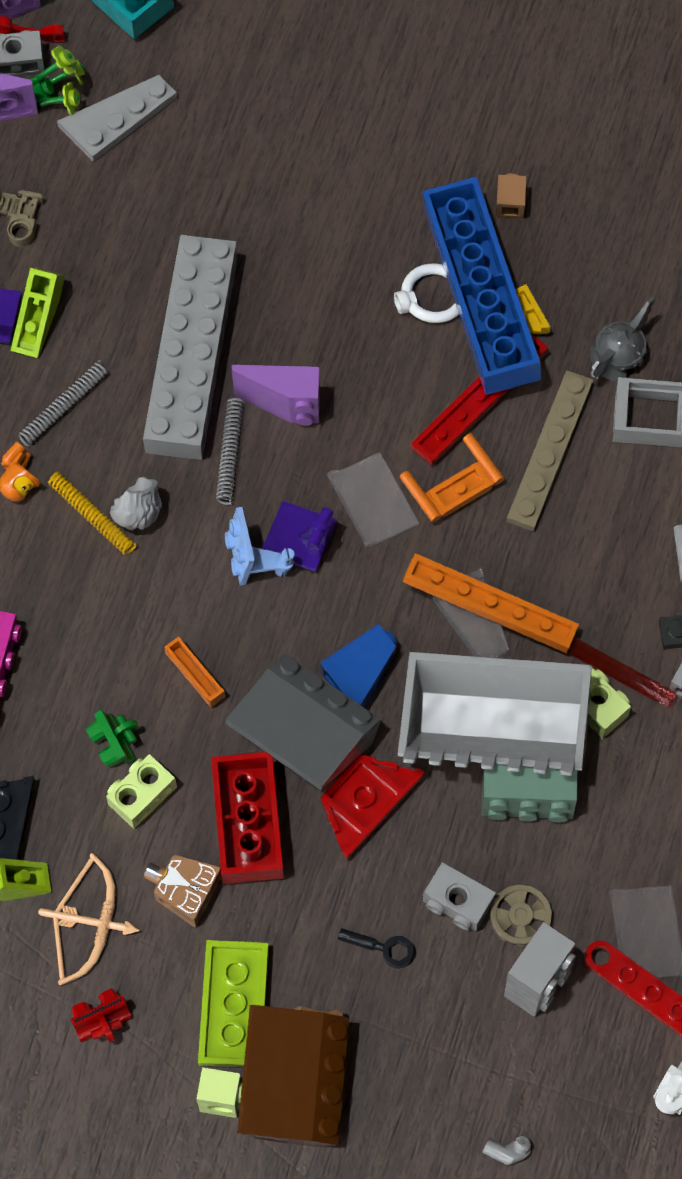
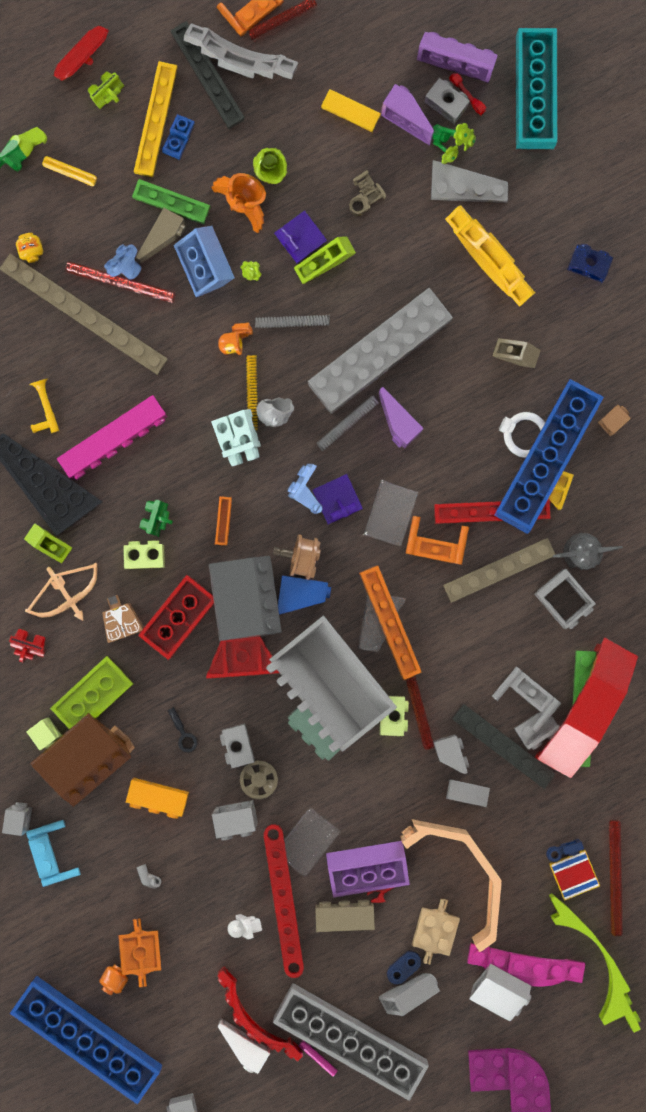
camera: 40 degrees right, 20 degrees up
(131, 566) = (236, 436): none -> light aqua hips
(213, 155) = (490, 255): none -> yellow piece
(316, 86) = (579, 265): none -> clear blue brick
(322, 622) = (302, 557): none -> medium nougat wheel
(339, 221) = (517, 352): none -> dark tan slope
(425, 1045) = (157, 798): none -> light orange brick

